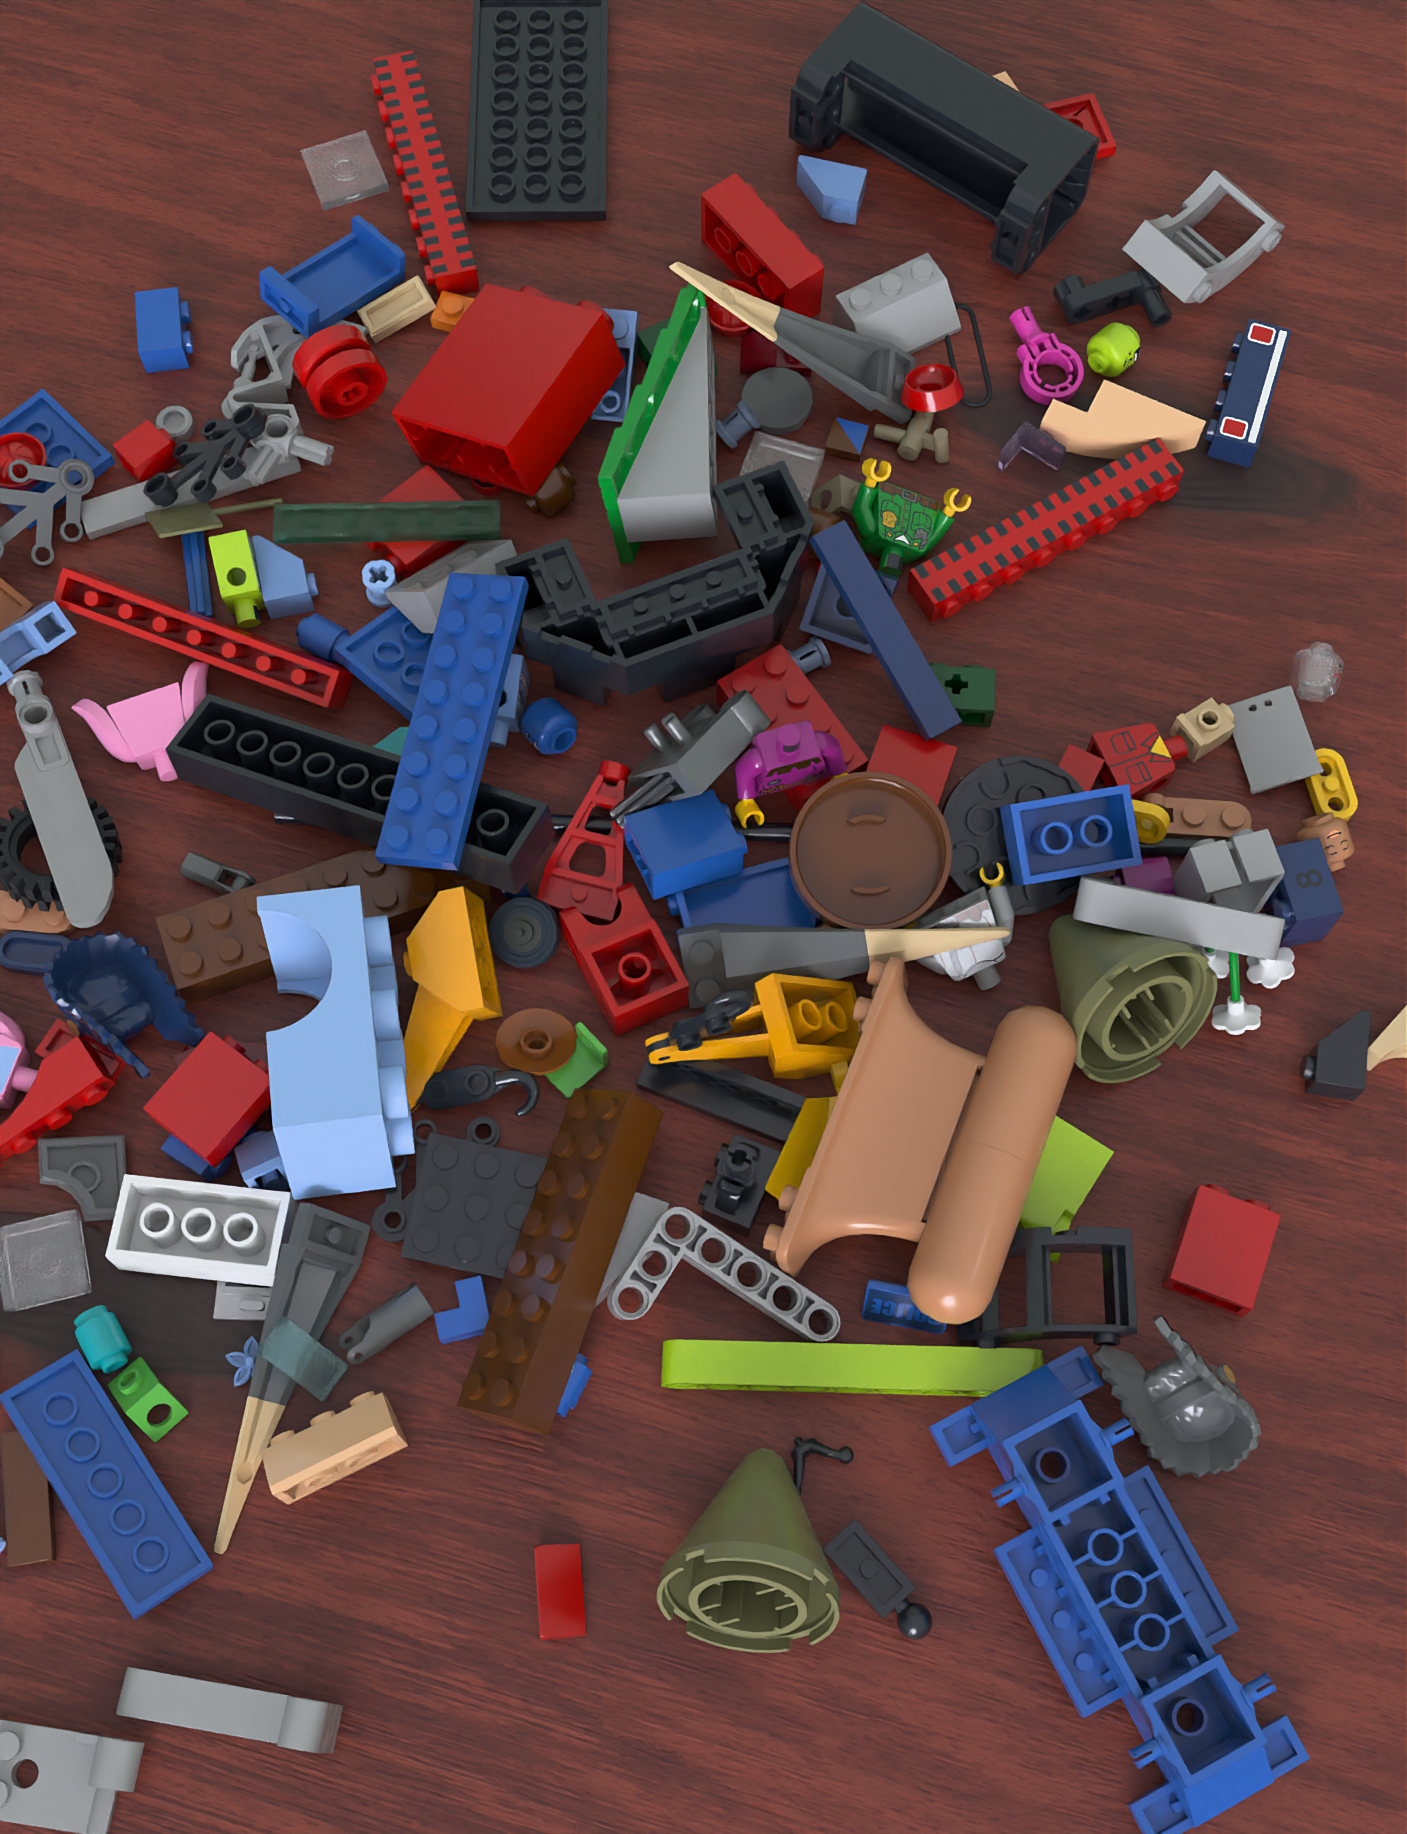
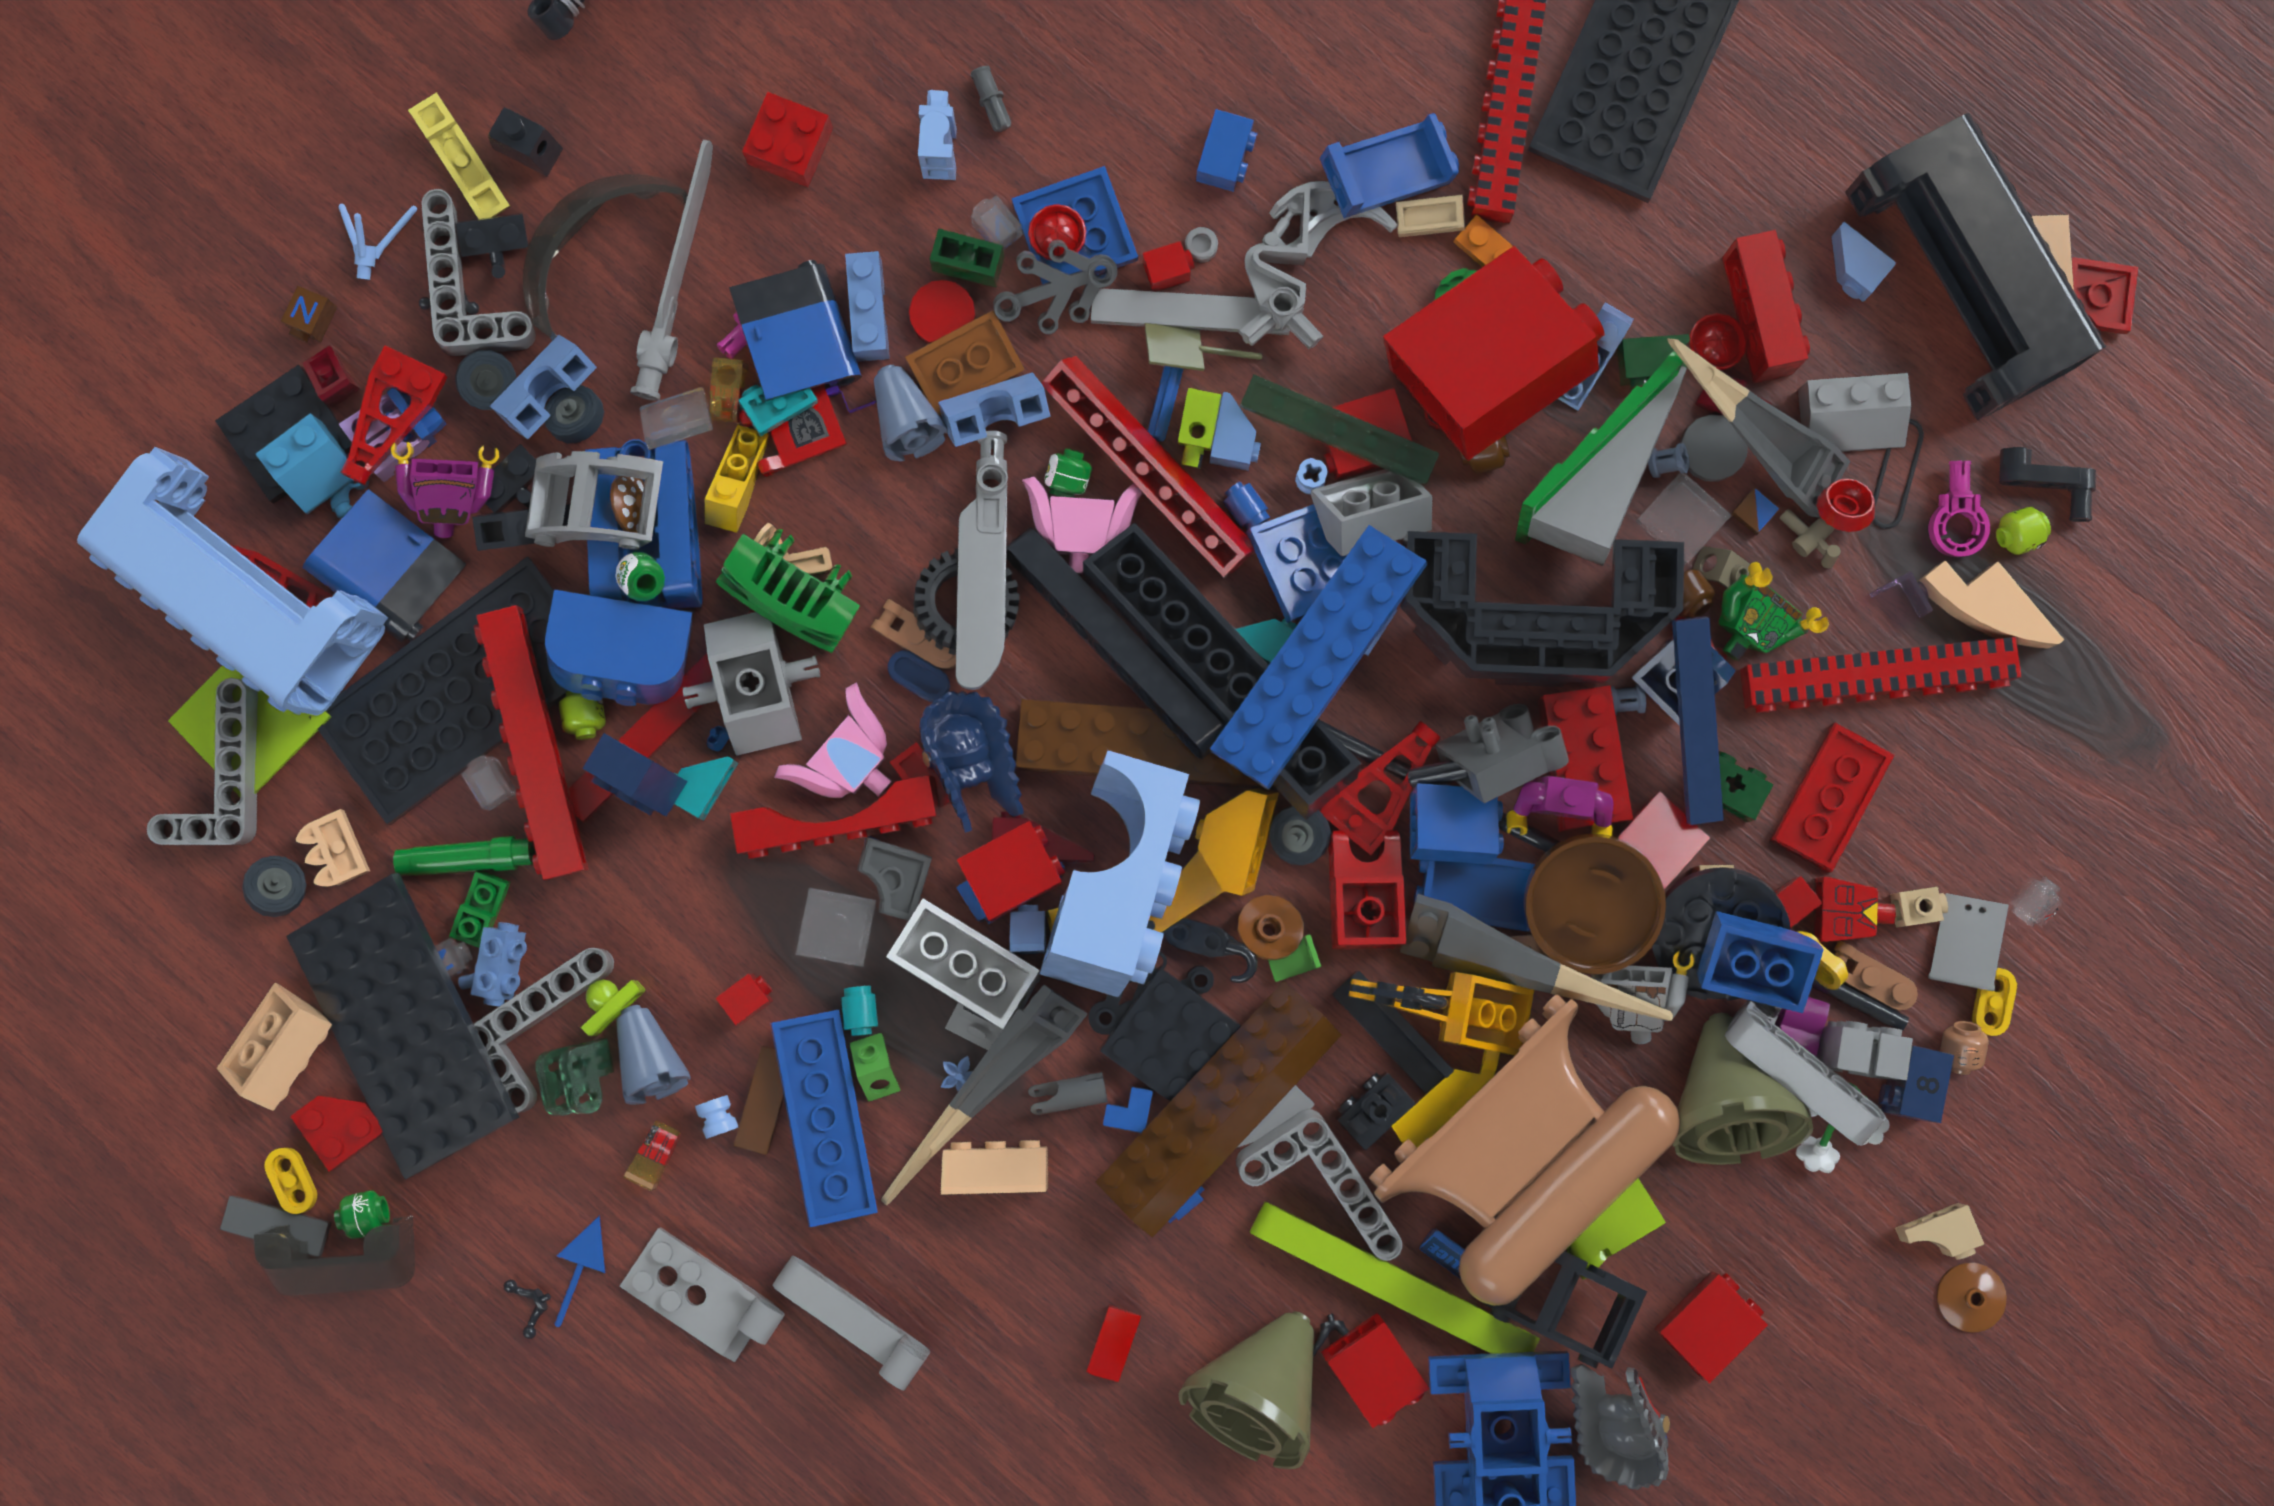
camera: 25 degrees right, 15 degrees up
(118, 679) = (1067, 474): none -> green head
(207, 456) = (1256, 293): black plant -> none
(214, 874) = (1077, 672): dark grey bar -> none
(235, 817) = (1115, 642): none -> black beam
(302, 1358) = (998, 1095): clear light blue tile -> none
(339, 371) = (1356, 266): red wheel -> none
(344, 170) = (1443, 50): clear tile -> none
(549, 726) = (1393, 666): blue head -> none
(877, 1474) = (1375, 1371): none -> red brick
(878, 1579) = (1341, 1442): black plate -> none
(1061, 666) = (1832, 797): none -> red tile
(1185, 259) = (2112, 477): light grey window -> none
(1248, 392) = (2117, 623): dark blue brick -> none
(1339, 1061) = (1879, 1225): black slope -> none

